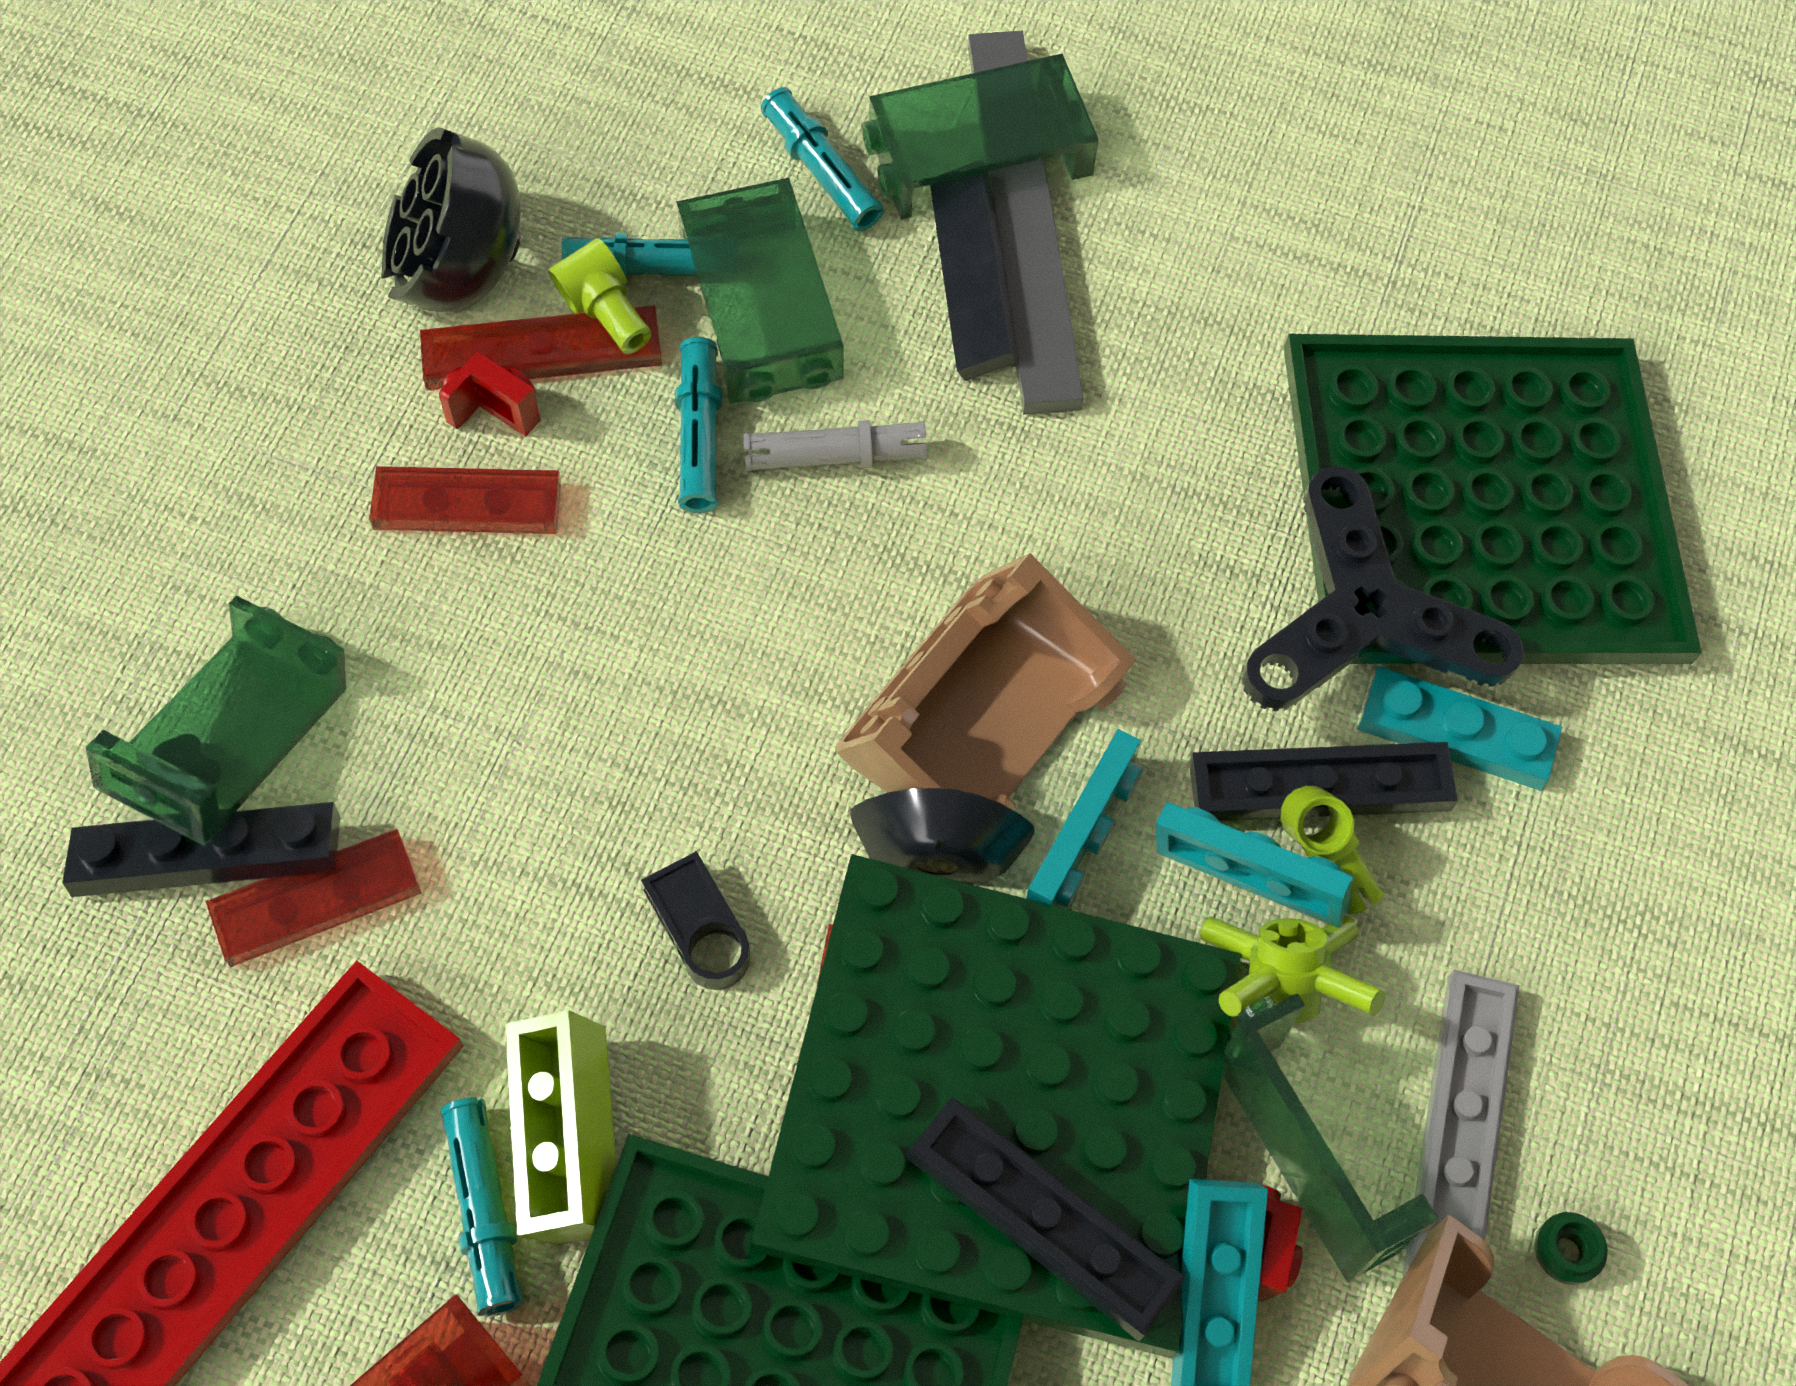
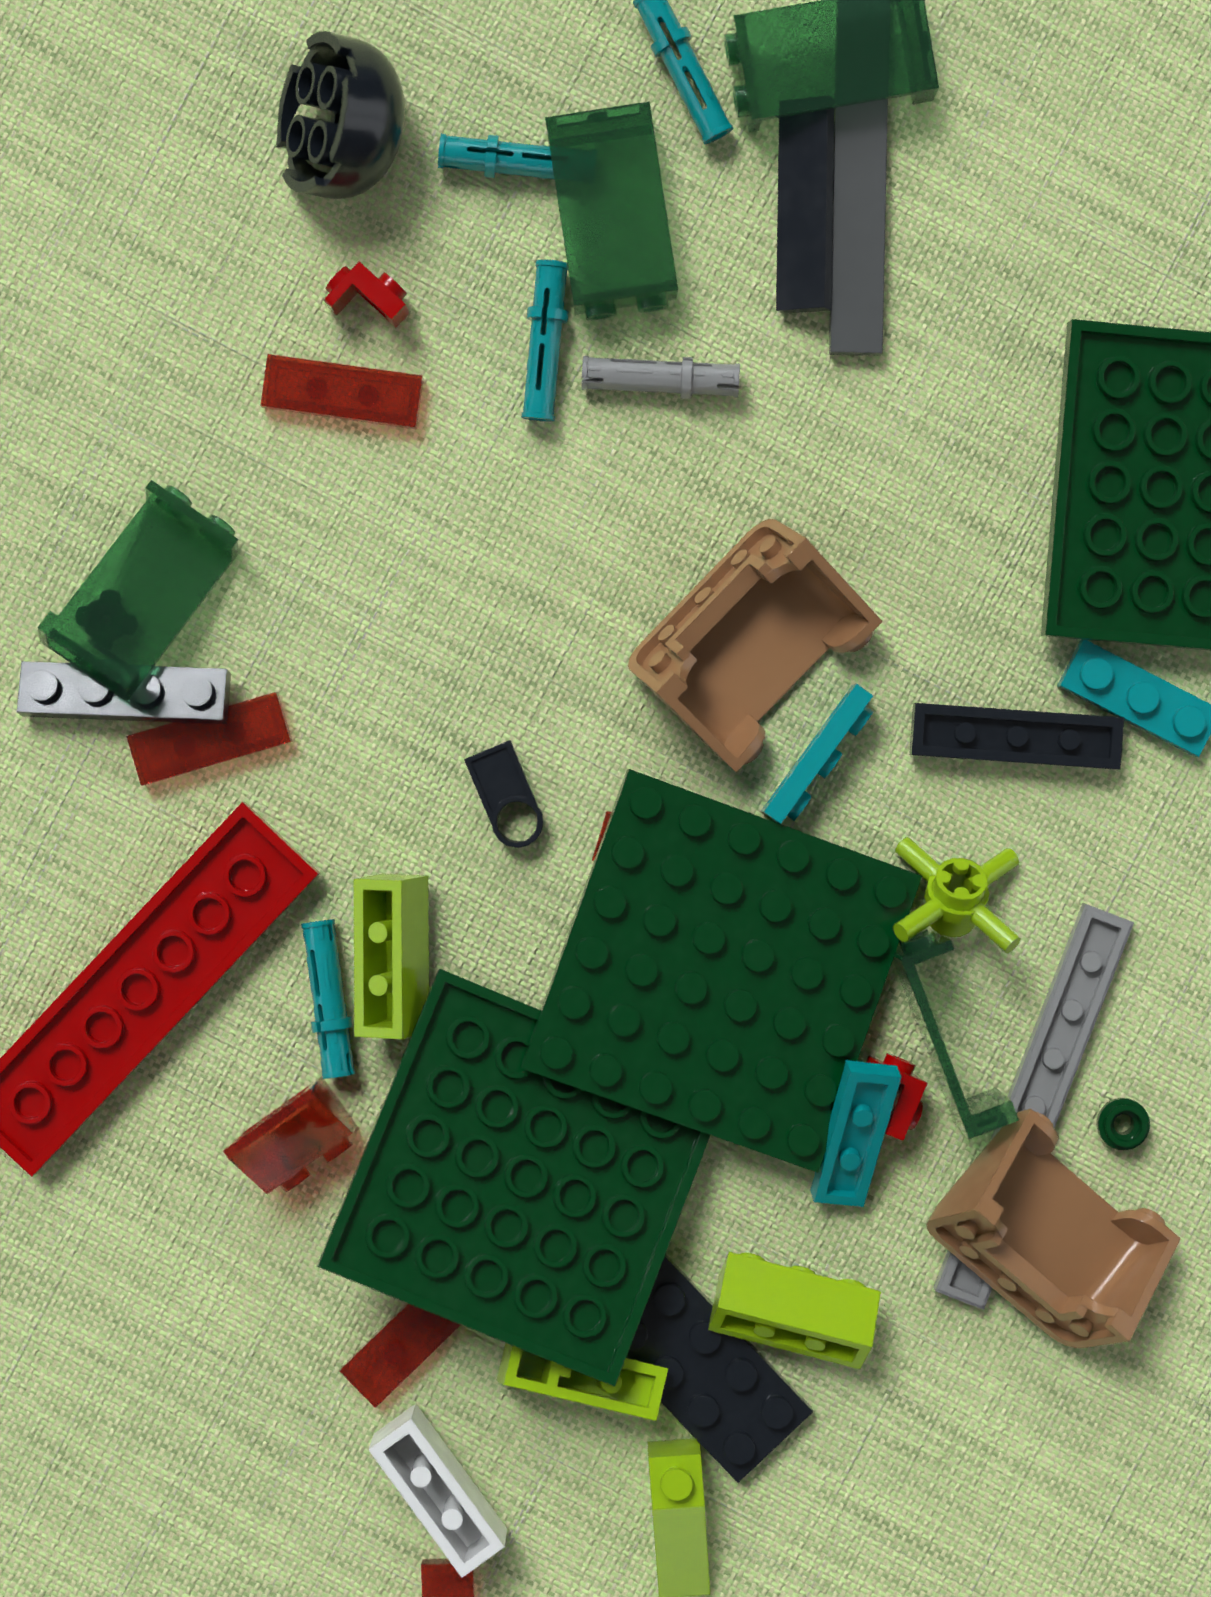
camera: 15 degrees right, 25 degrees up
(536, 347) = (414, 241): clear red tile -> none
(595, 284) = (465, 197): lime pin -> none
(973, 831) = (691, 750): black piece -> none
(1045, 1218) = (735, 1074): black tile -> none
(1254, 863) = (946, 804): teal plate -> none
(1335, 842) = (1008, 798): lime pin -> none
(1407, 621) = (1082, 562): black piece -> none

